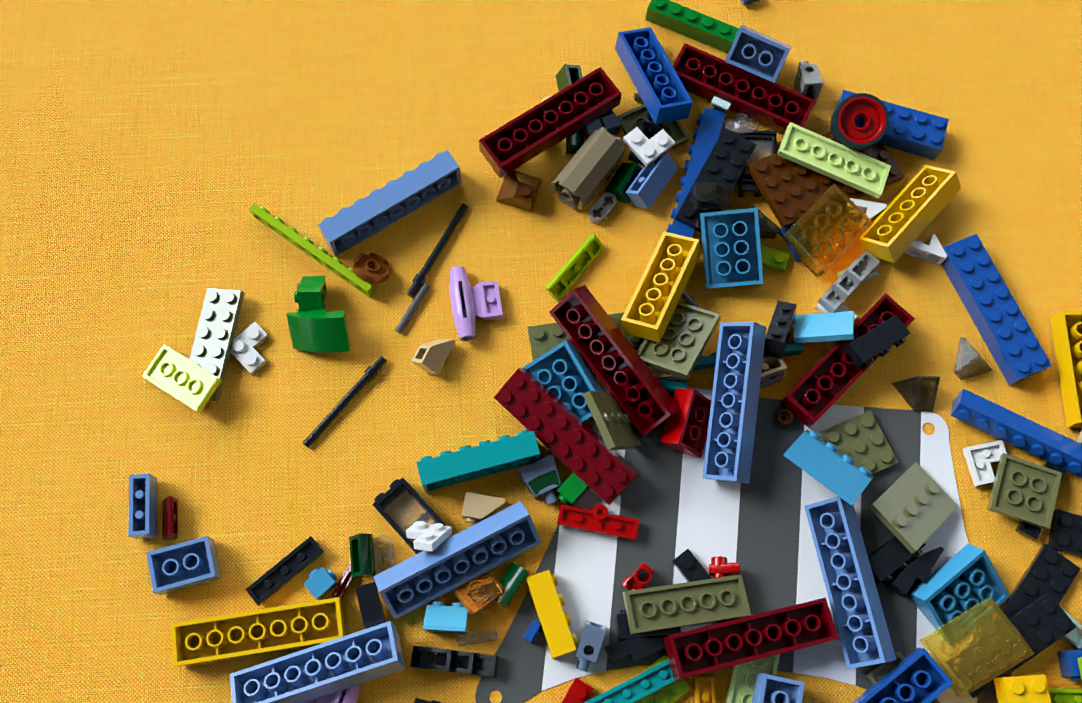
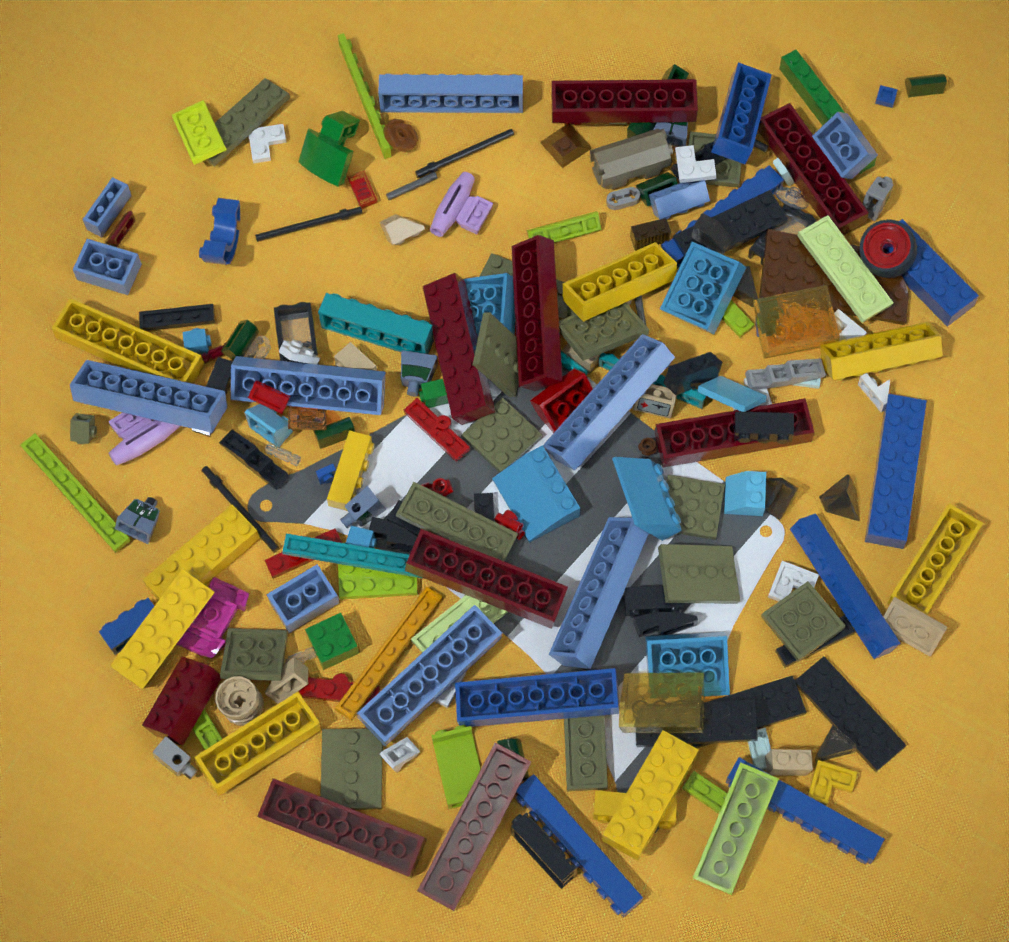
camera: 40 degrees right, 5 degrees down
(275, 463) = (224, 237): none -> blue brick
(370, 339) = (362, 189): none -> red tile
(430, 595) = (269, 396): none -> red tile
(609, 675) = (361, 537): none -> dark azure brick
(650, 226) = (649, 233): none -> dark brown brick
(658, 490) = (502, 436): none -> olive plate
(726, 524) = (537, 494): none -> dark azure slope
(894, 407) = (745, 493): none -> medium azure slope

